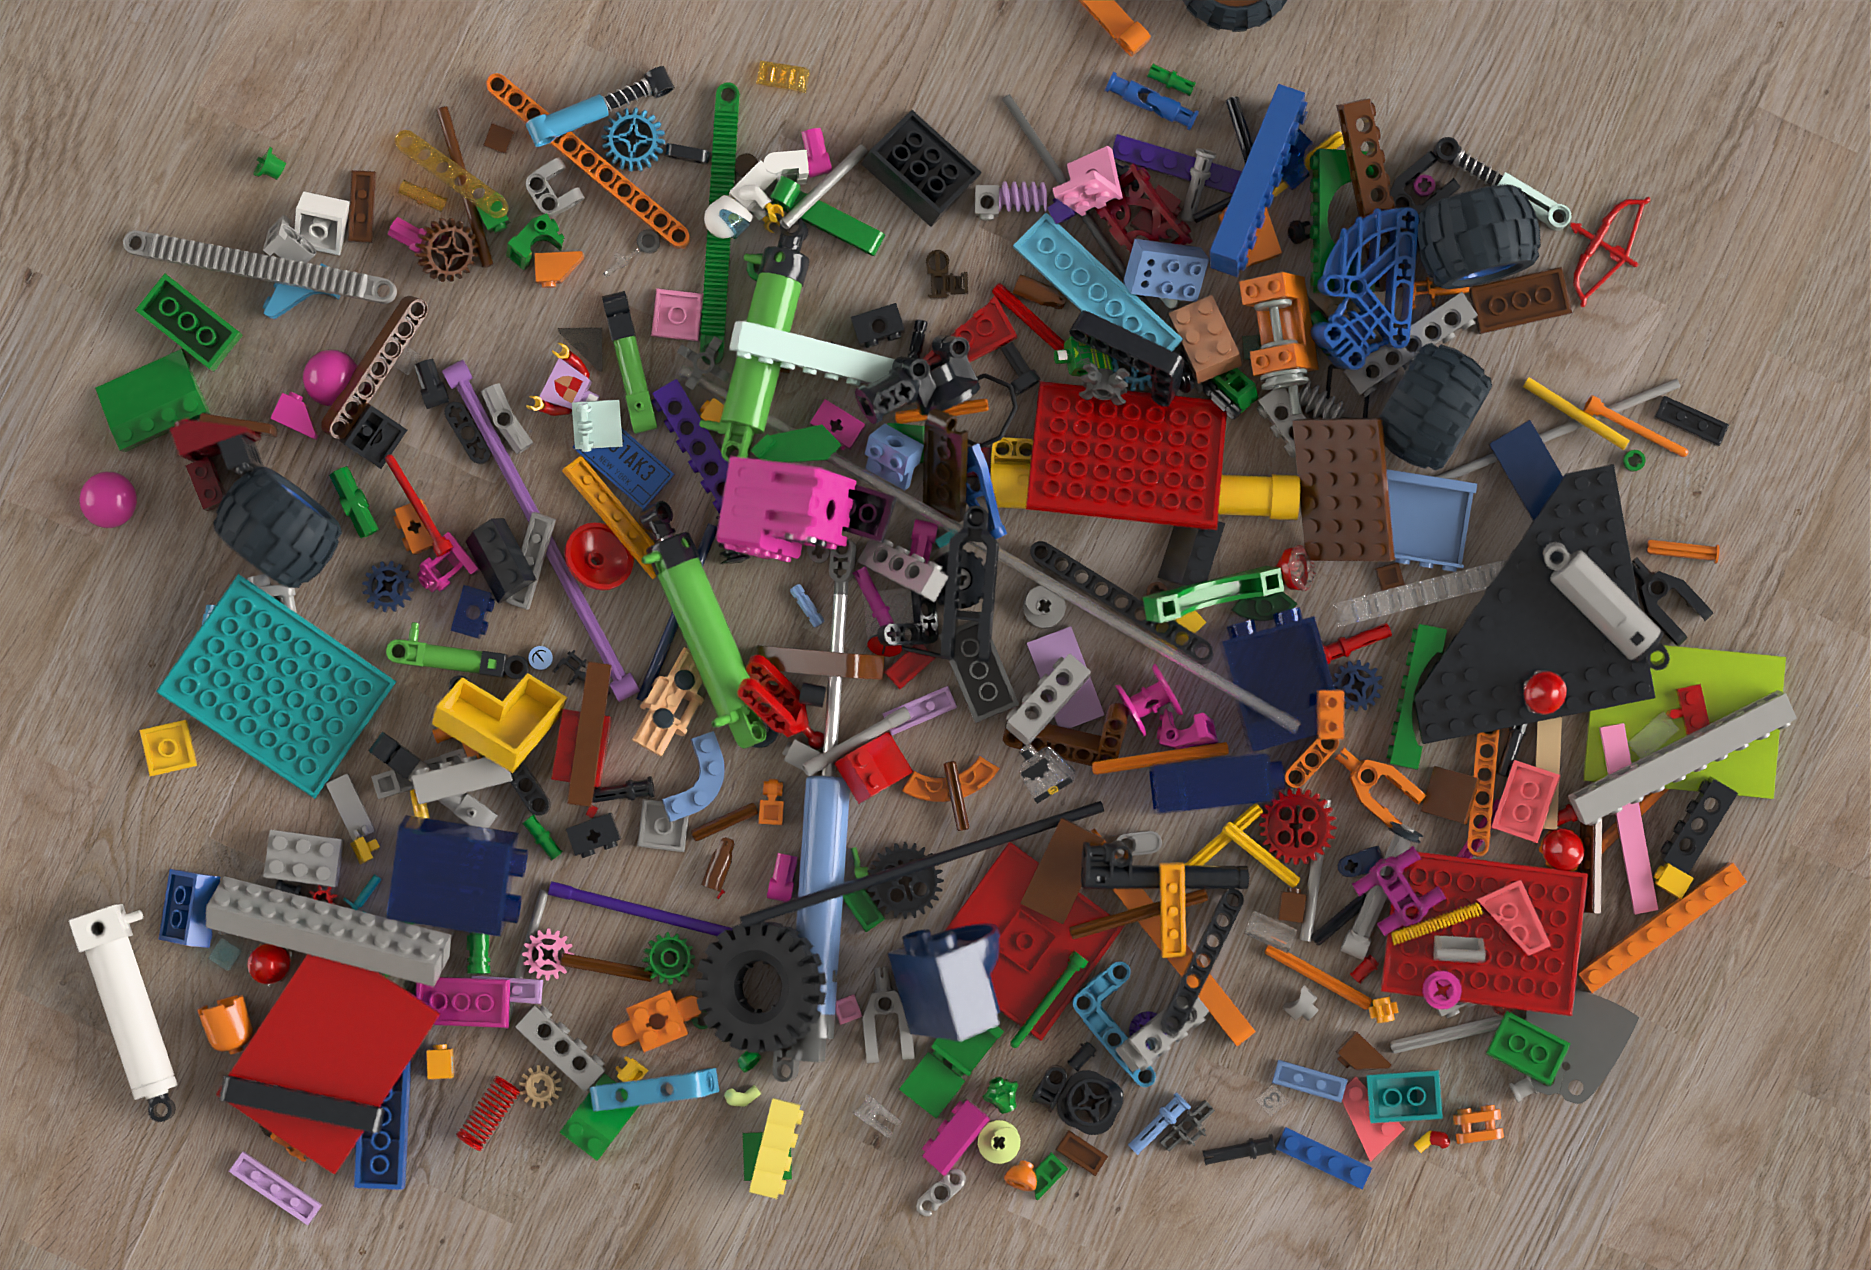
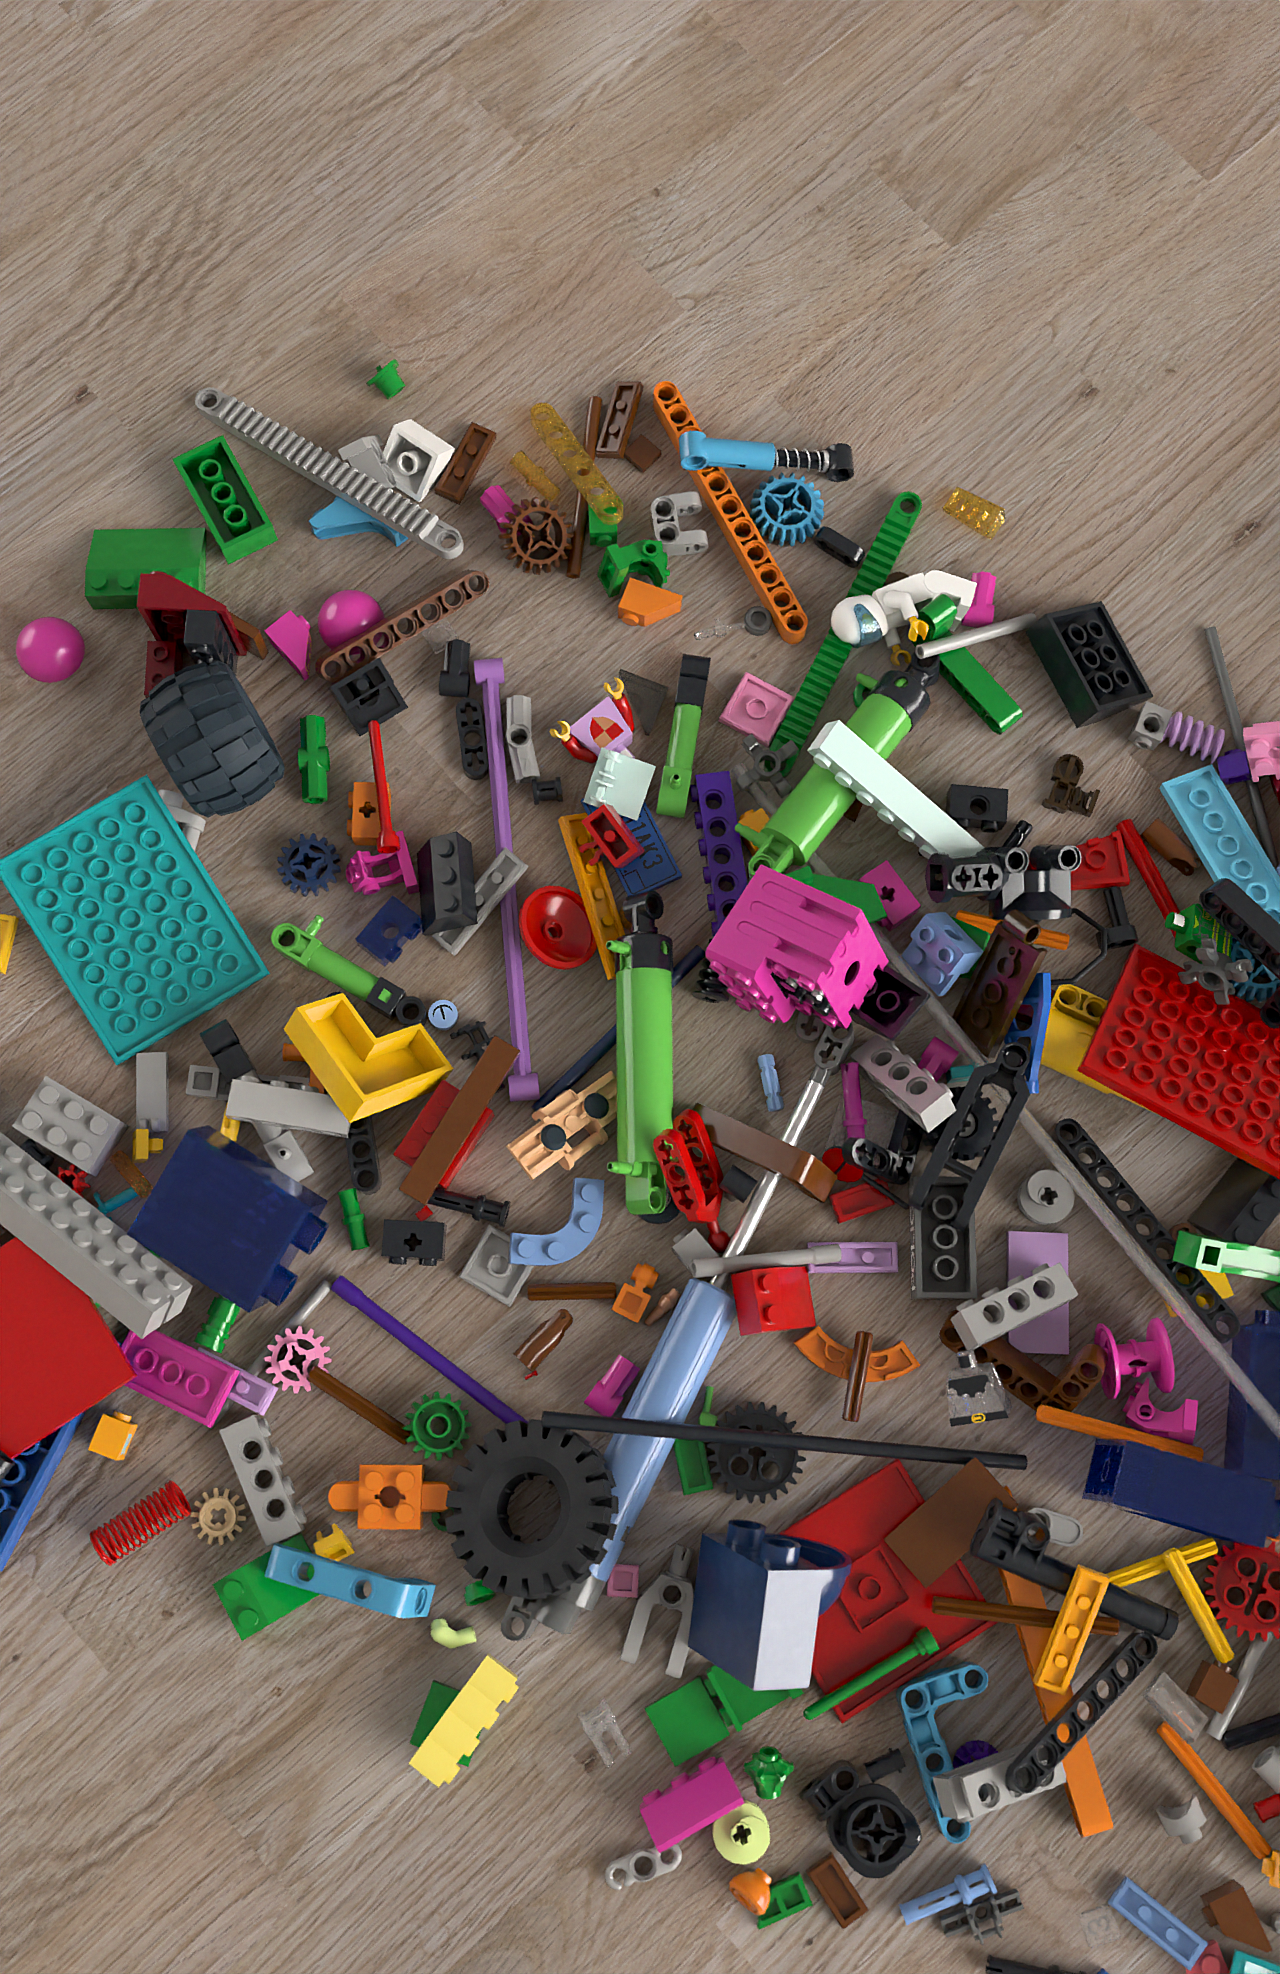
camera: 20 degrees right, 10 degrees down
(365, 873) = (131, 1174): none -> clear orange axle
(468, 118) = (619, 420): none -> reddish brown tile
(546, 454) = (541, 794): none -> black bush
(609, 470) = (612, 837): none -> red brick
(796, 803) = (665, 1304): none -> nougat piece

